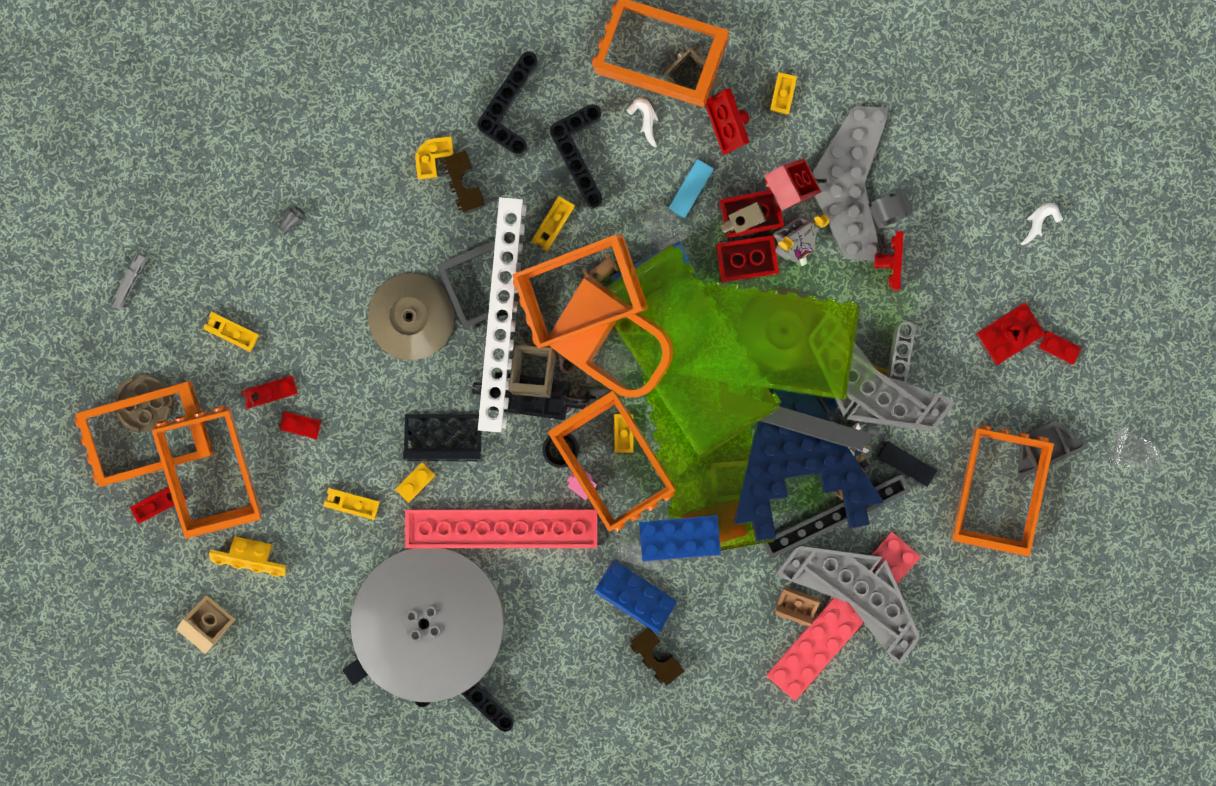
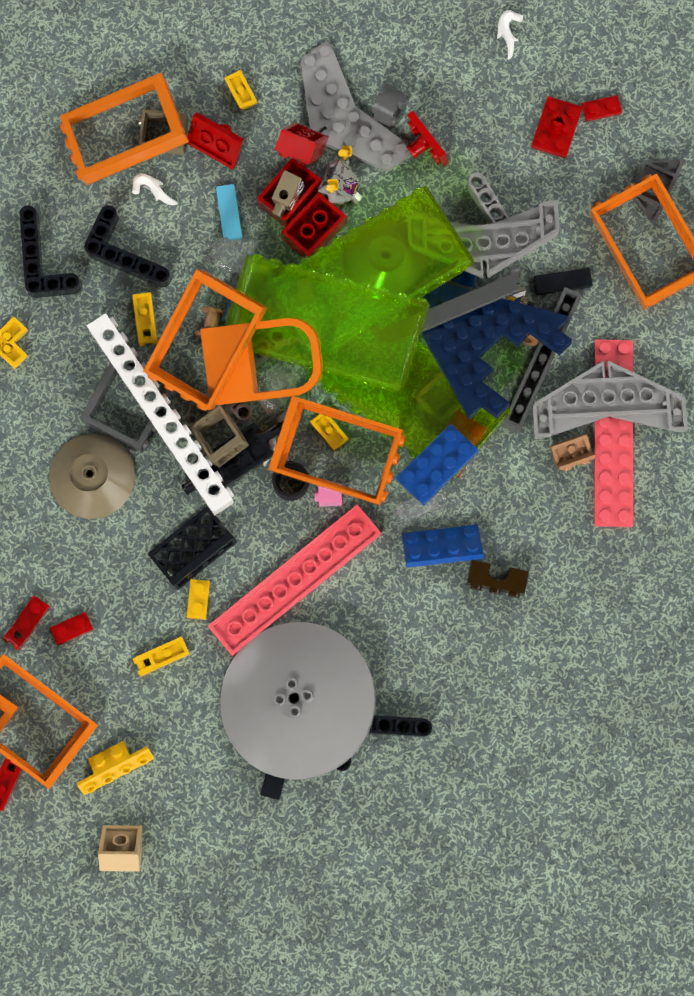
camera: 40 degrees left, 10 degrees down
(457, 166) = (64, 351): dark brown arch -> none

